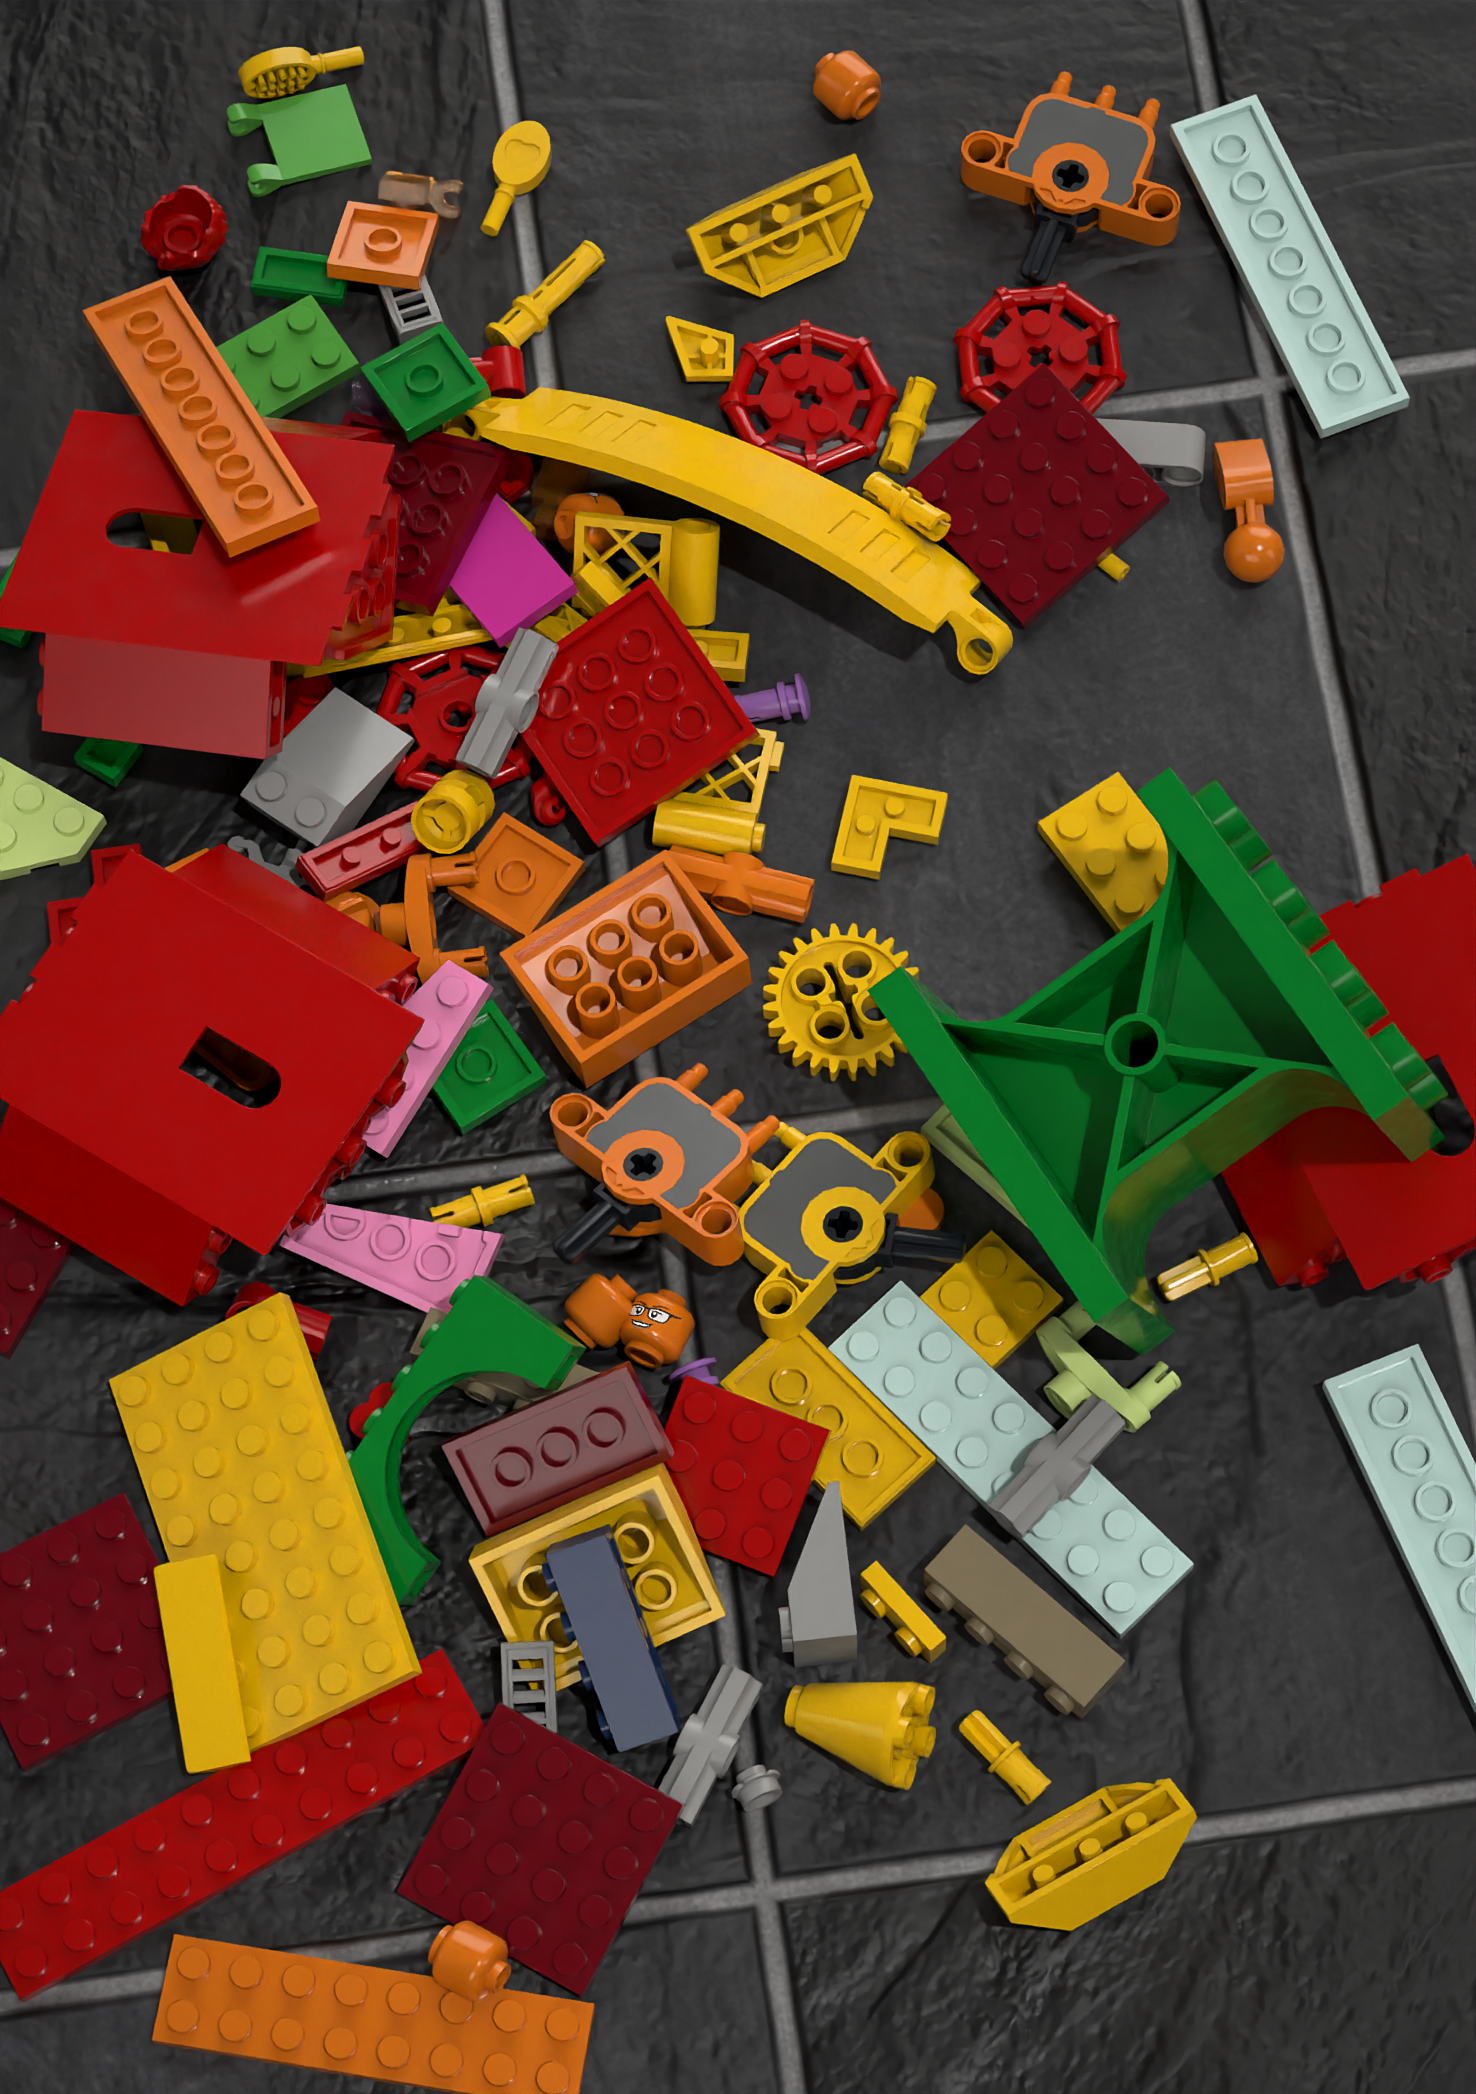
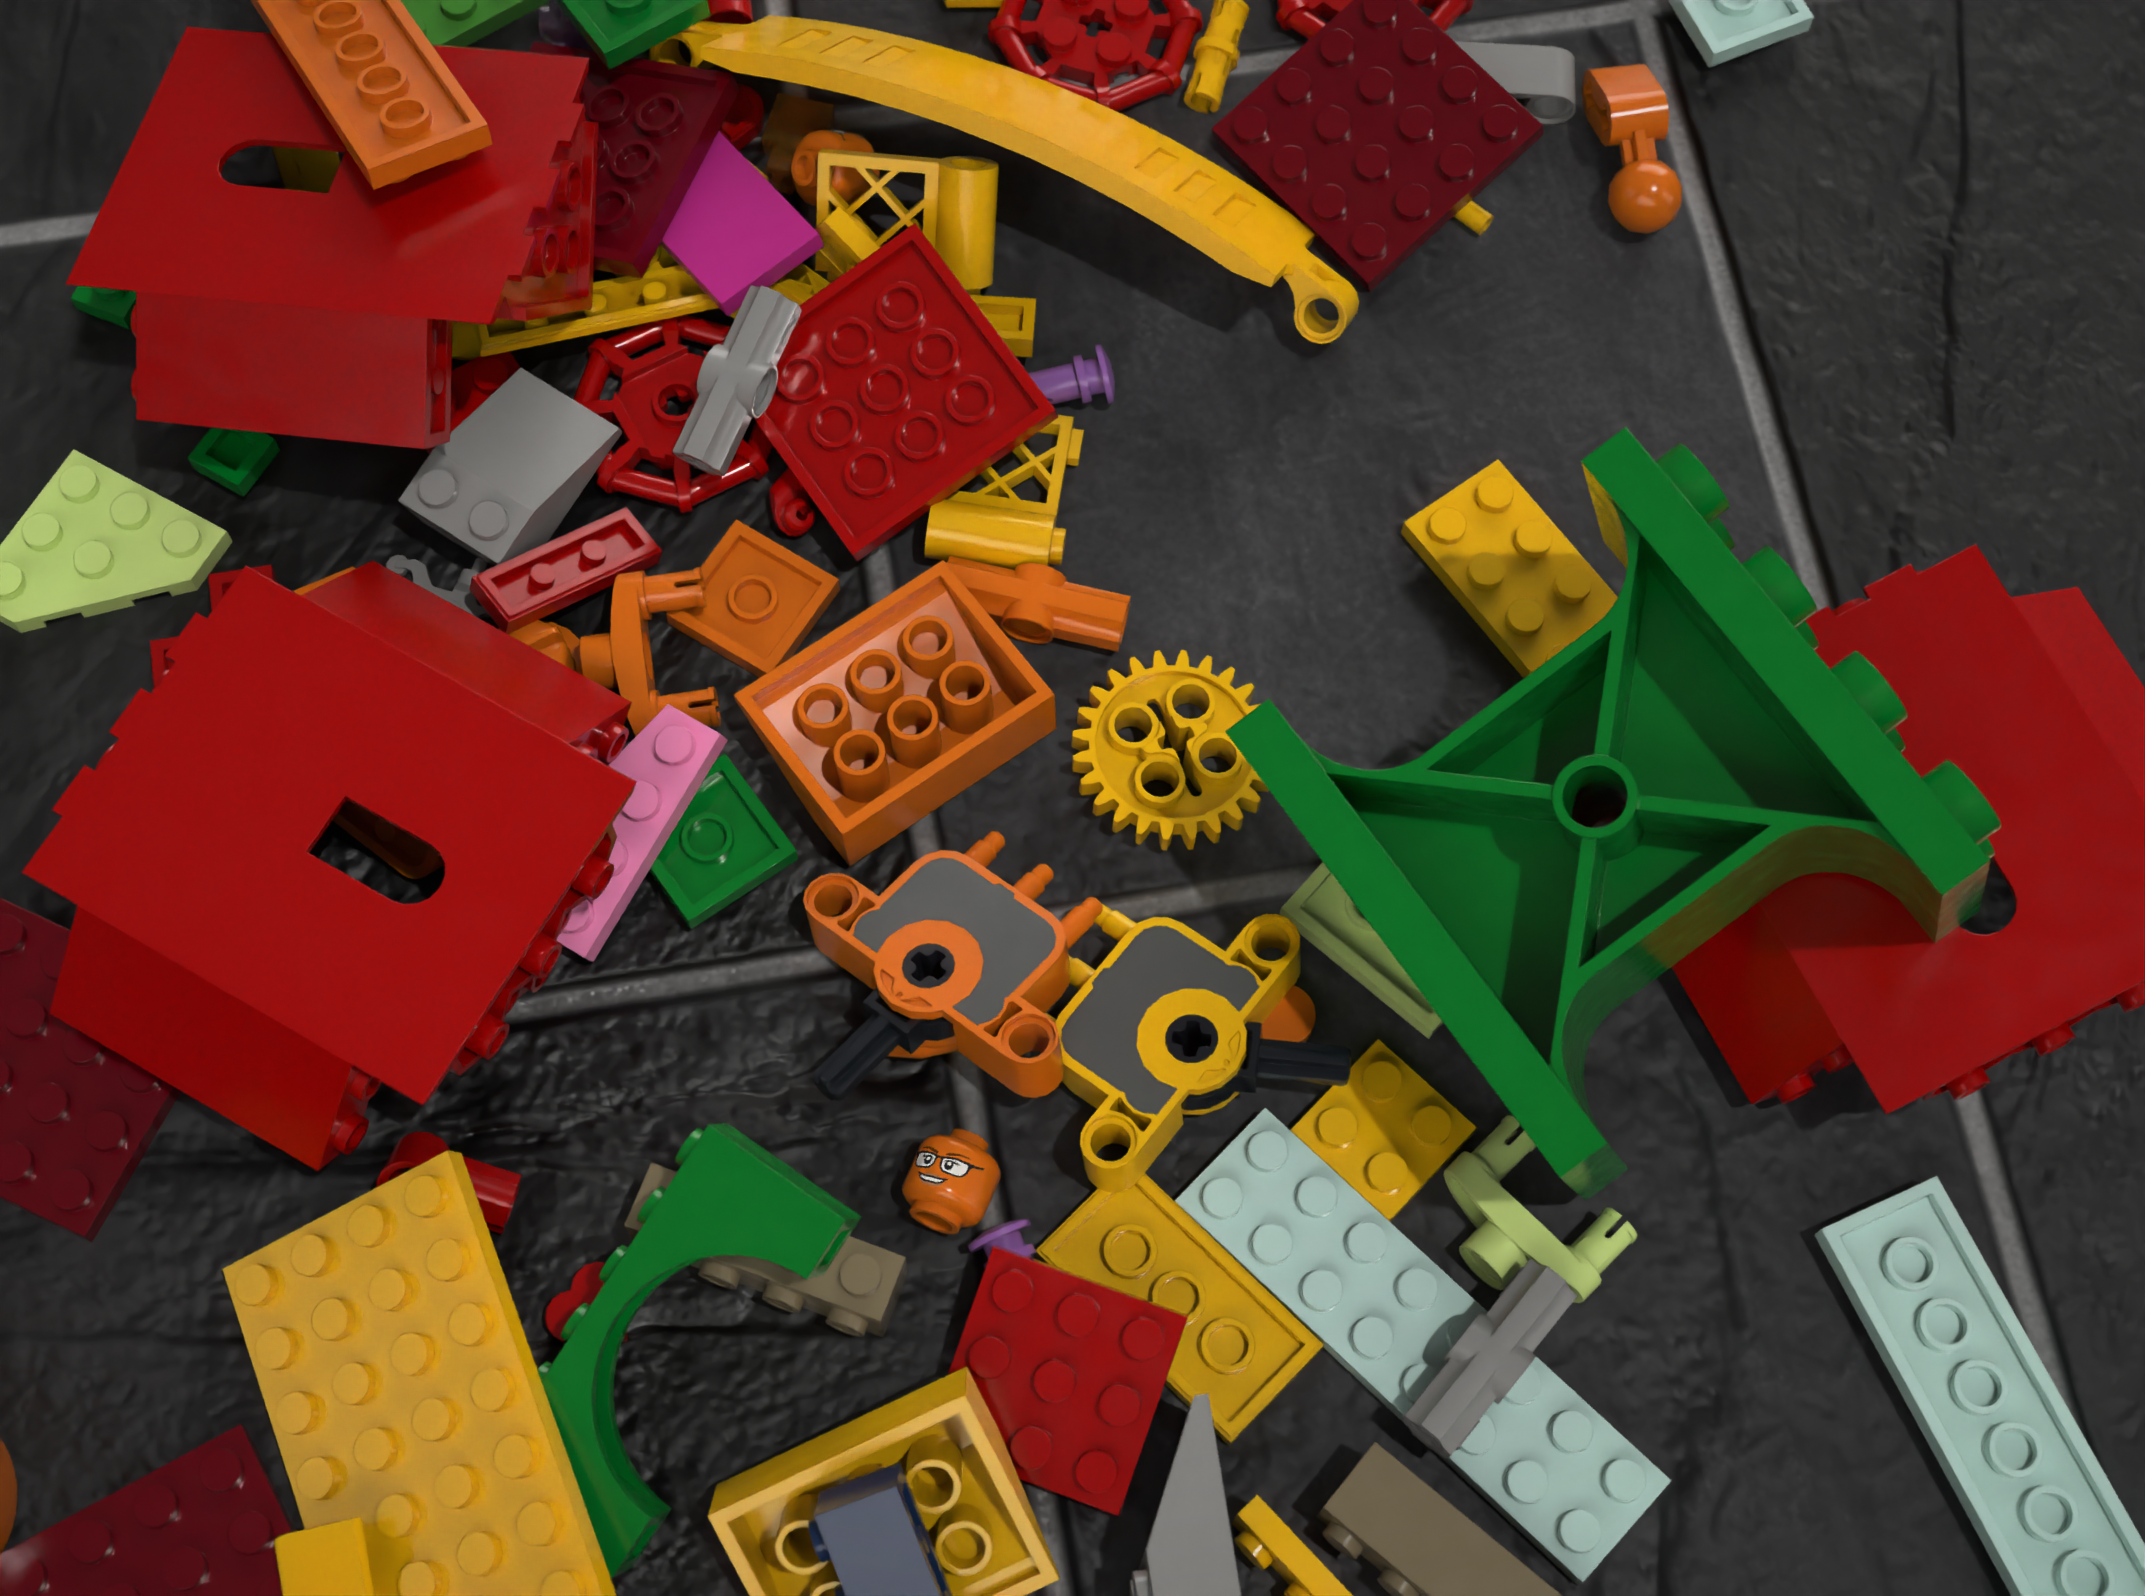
camera: 10 degrees left, 0 degrees up
(397, 1254) = (609, 1091): bright pink wing -> none
(452, 811) = (670, 518): yellow wheel -> none
(485, 1204) = (717, 1022): yellow pin -> none
(558, 1448) = (826, 1353): plate -> none
(599, 1309) = (875, 1158): orange head -> none
(882, 810) = (1209, 510): yellow plate -> none
(906, 506) = (1222, 146): yellow pin -> none
(1207, 1267) = (1656, 1081): yellow axle -> none

